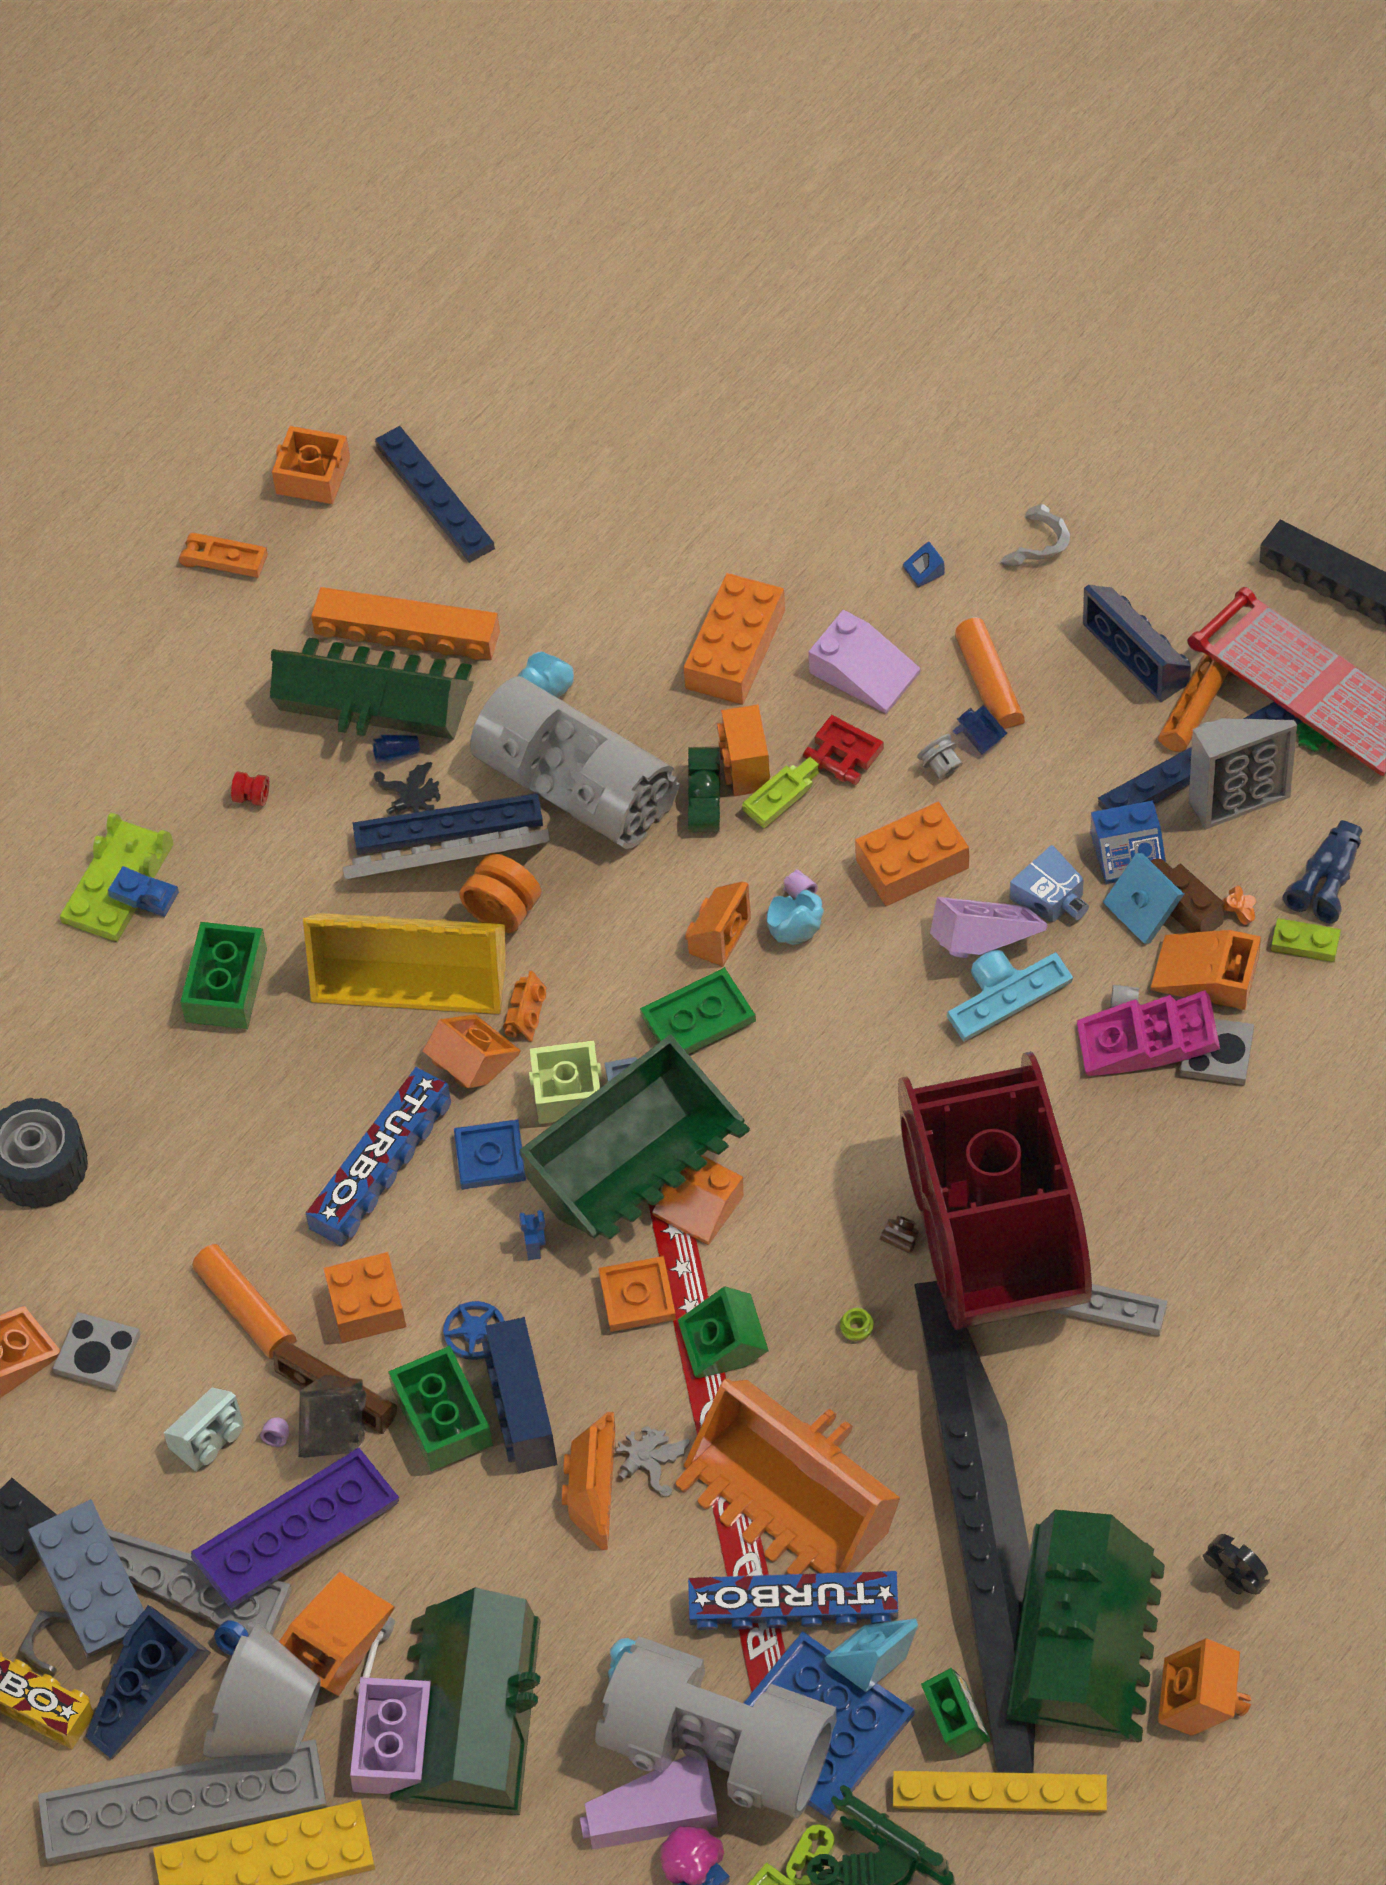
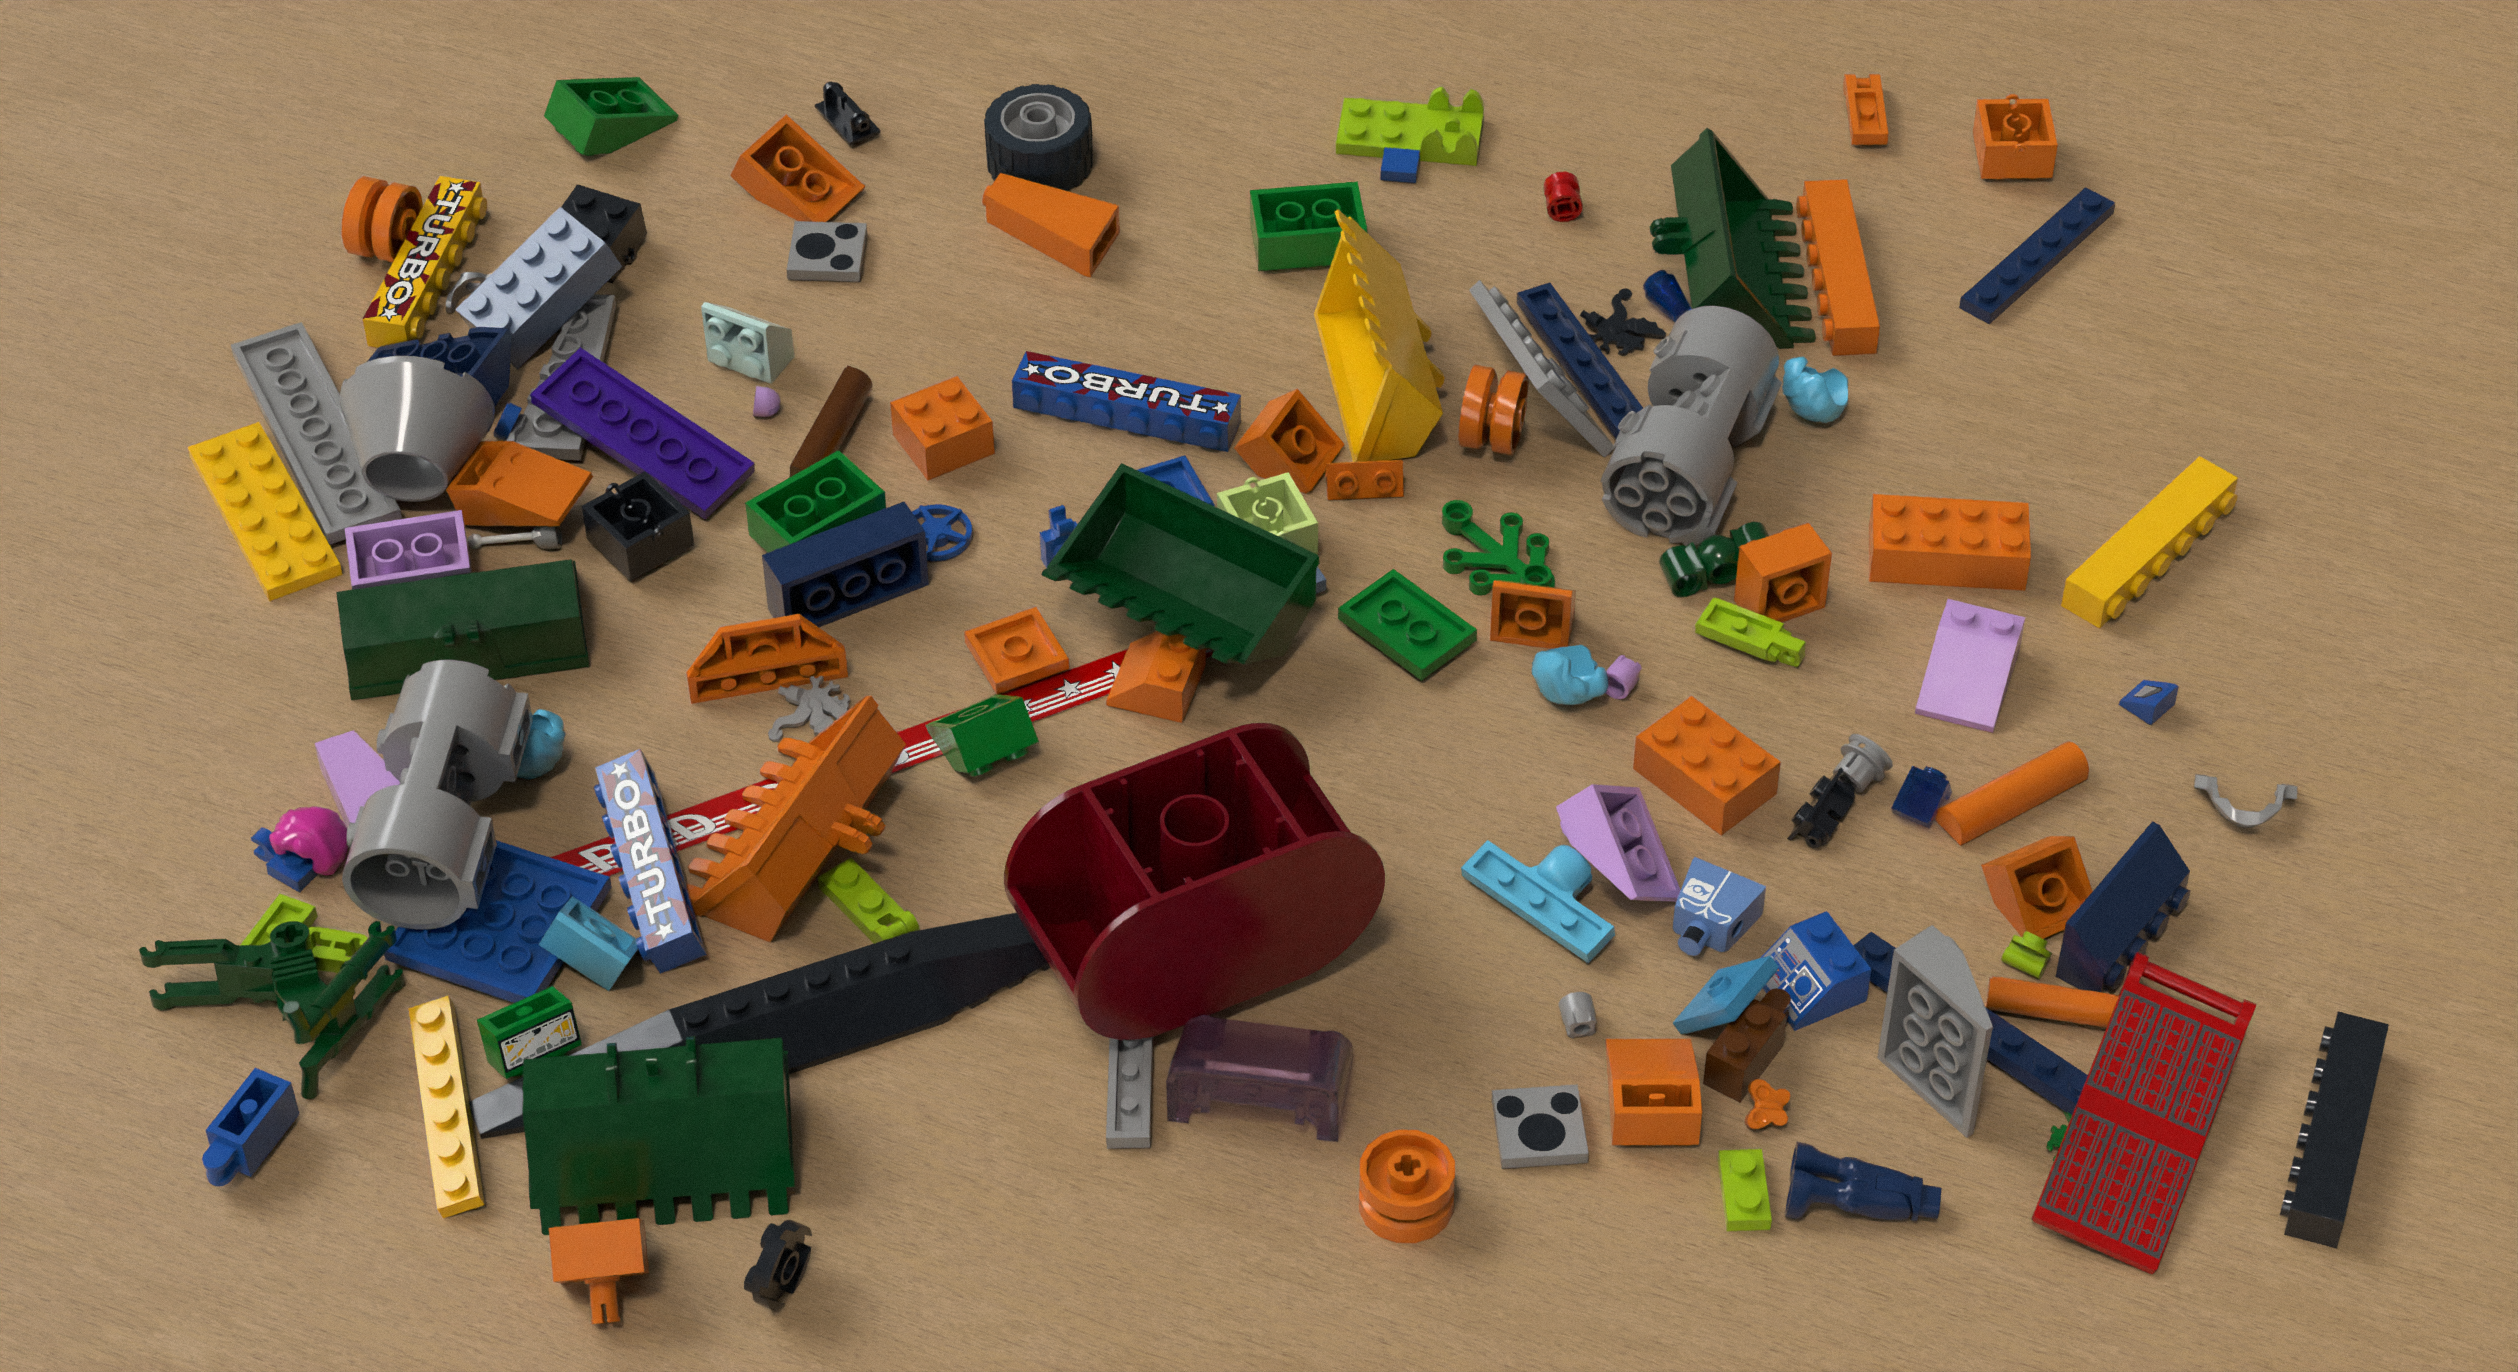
camera: 70 degrees right, 10 degrees down
(134, 888) = (1391, 134): blue plate -> none
(135, 1165) = (1053, 221): none -> orange slope
(241, 1299) = (920, 341): orange brick -> none
(331, 1416) = (769, 416): clear smoke slope -> none
(408, 1548) = (637, 525): none -> black brick
(639, 934) = (1458, 519): none -> green plant
(775, 515) = (2150, 542): none -> yellow brick
(847, 742) = (1847, 680): red plate -> none
(880, 1450) = (865, 902): none -> lime plate
(967, 794) = (1829, 797): none -> black hinge
(1087, 682) = (2039, 885): none -> orange slope
(1133, 1210) = (1261, 1068): none -> windscreen
(1143, 710) = (2027, 954): none -> lime plate
(1147, 1034) = (1531, 1046): dark pink slope -> none
(1261, 1141) = (1406, 1186): none -> orange wheel

